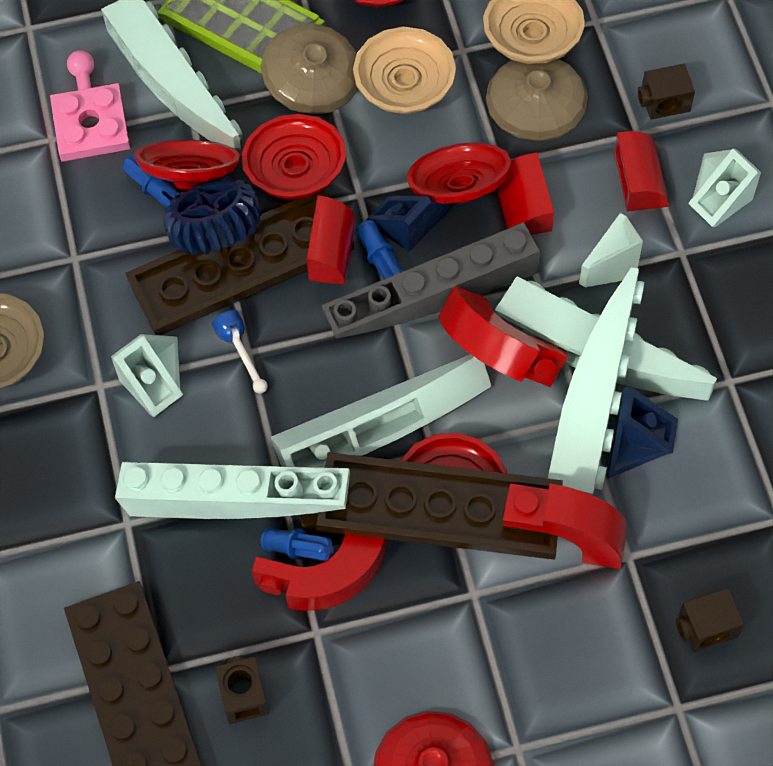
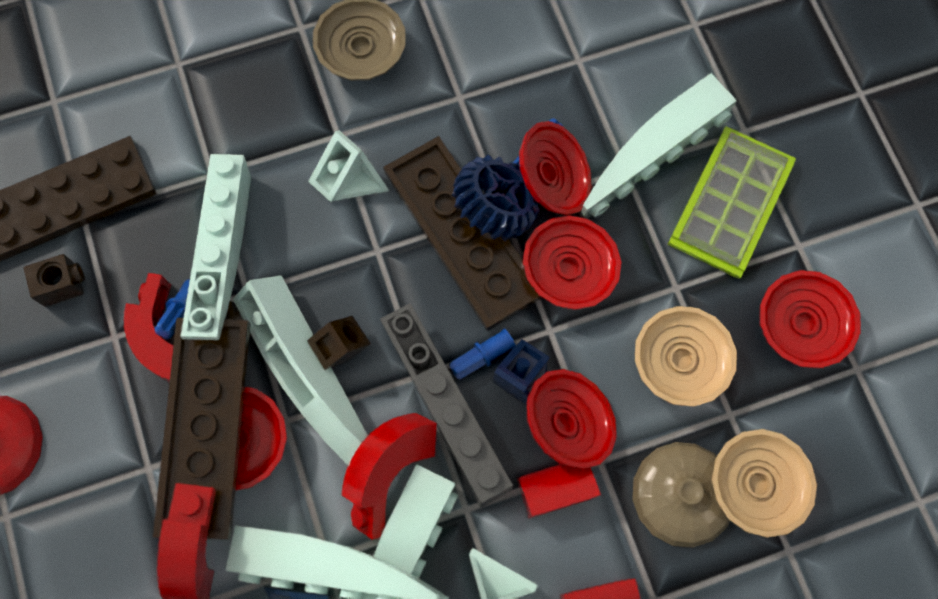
camera: 80 degrees right, 10 degrees up
(73, 107) = (609, 71): bright pink plate -> none
(230, 328) = (391, 231): hinge -> none
(310, 69) = (682, 268): dark tan hat -> none
(330, 241) = (476, 303): red brick -> none
(355, 379) = (338, 342): none -> dark brown brick

